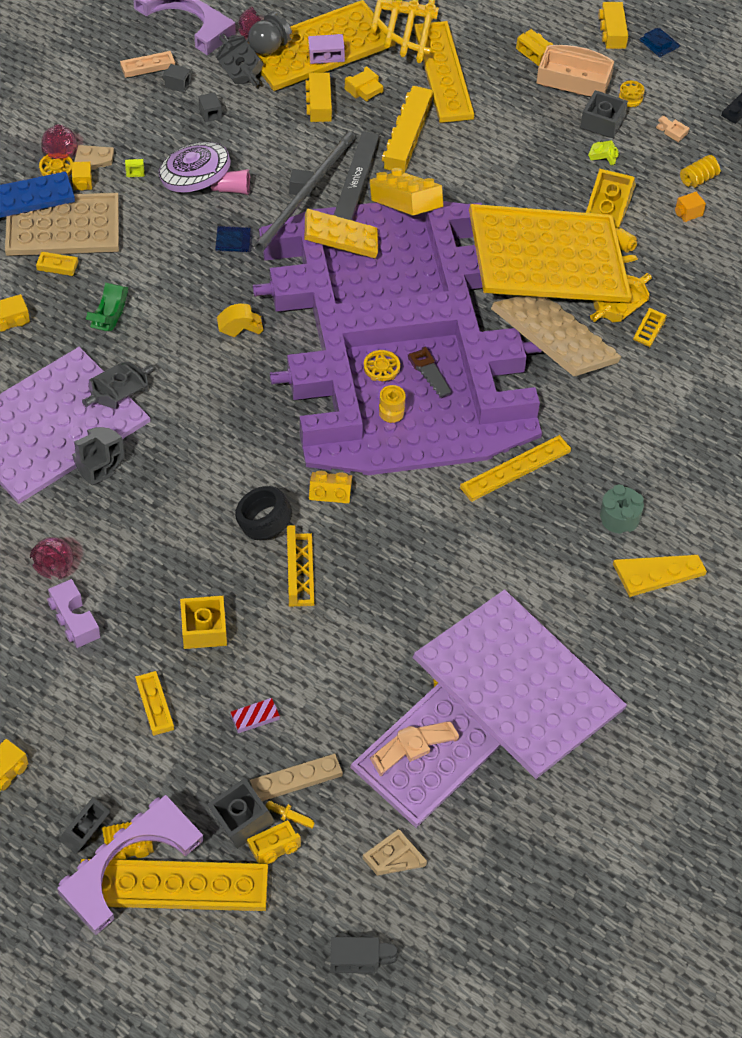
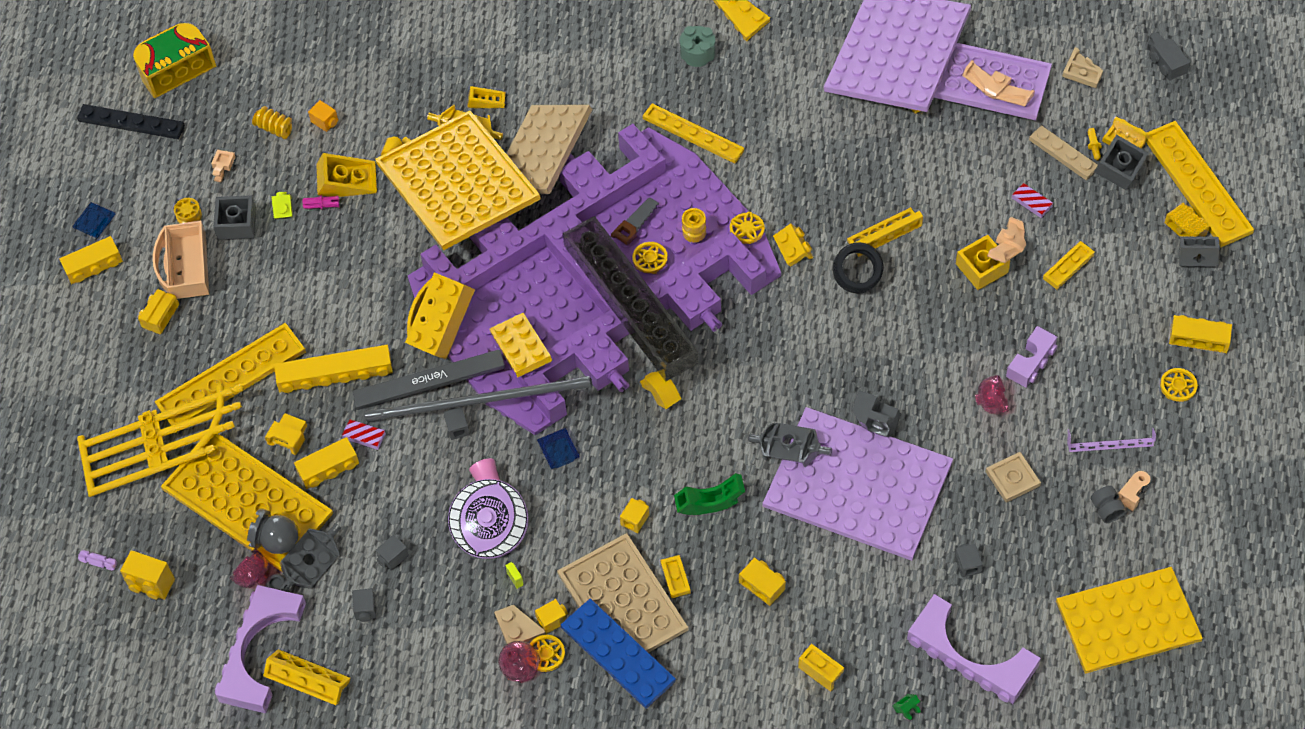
camera: 110 degrees left, 5 degrees up
(131, 258) = (634, 515): none -> yellow brick
(147, 64) = (354, 646): light nougat plate -> none
(153, 22) = (305, 677): none -> yellow fence
(159, 823) = (1173, 197): lavender arch -> none
(206, 652) = (1010, 241): none -> light nougat plate
(326, 48) = (262, 477): lavender brick -> none
(328, 305) = (630, 298): none -> clear smoke brick
(334, 130) = (364, 434): none -> tile
(368, 451) = (747, 228): none -> yellow wheel
(590, 177) = (320, 202): none -> dark pink axle

